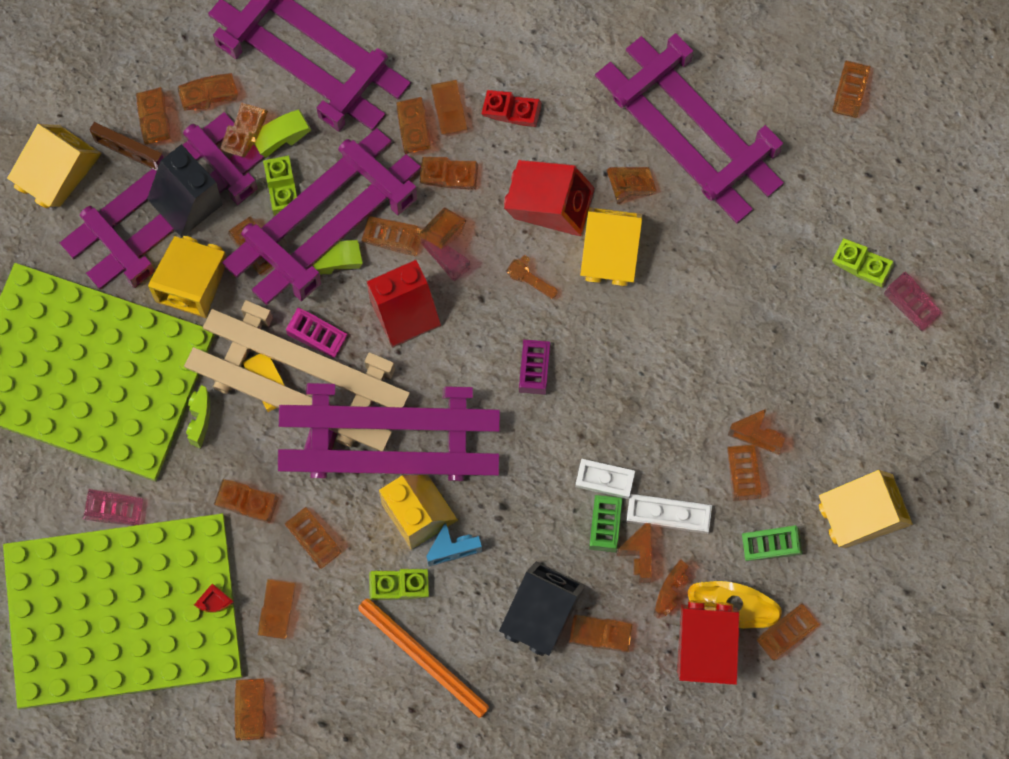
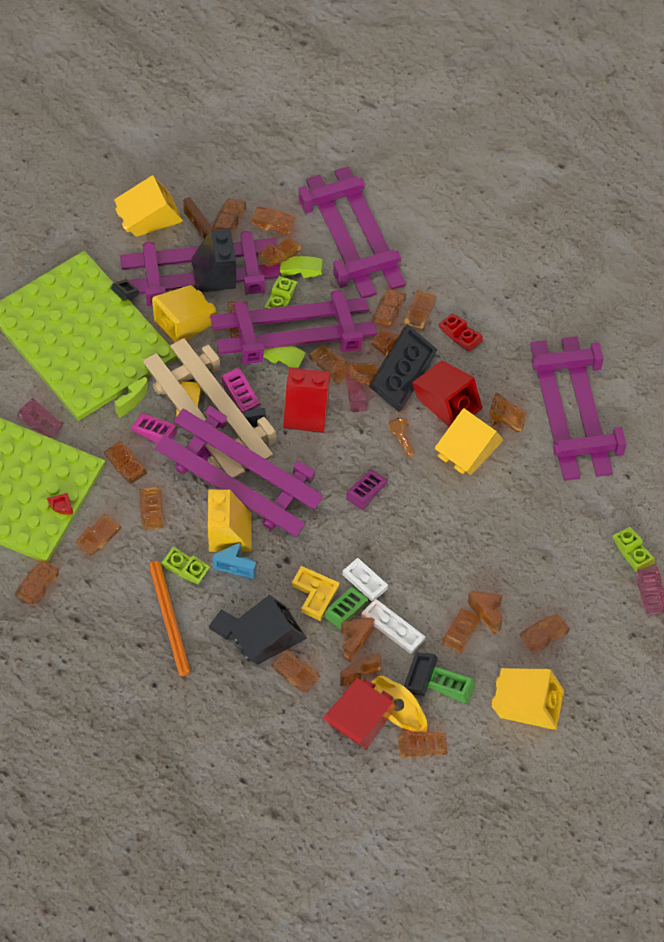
camera: 30 degrees right, 15 degrees down
(99, 286) = (125, 289): none -> black tile
(260, 429) = (169, 428): none -> dark pink slope
(356, 356) = (254, 415): none -> black tile
(480, 194) = (401, 367): none -> black tile
(487, 627) = (221, 623): none -> black tile
(566, 521) = (320, 591): none -> yellow plate
(734, 552) = (420, 673): none -> black tile
(833, 421) = (544, 631): none -> clear orange slope

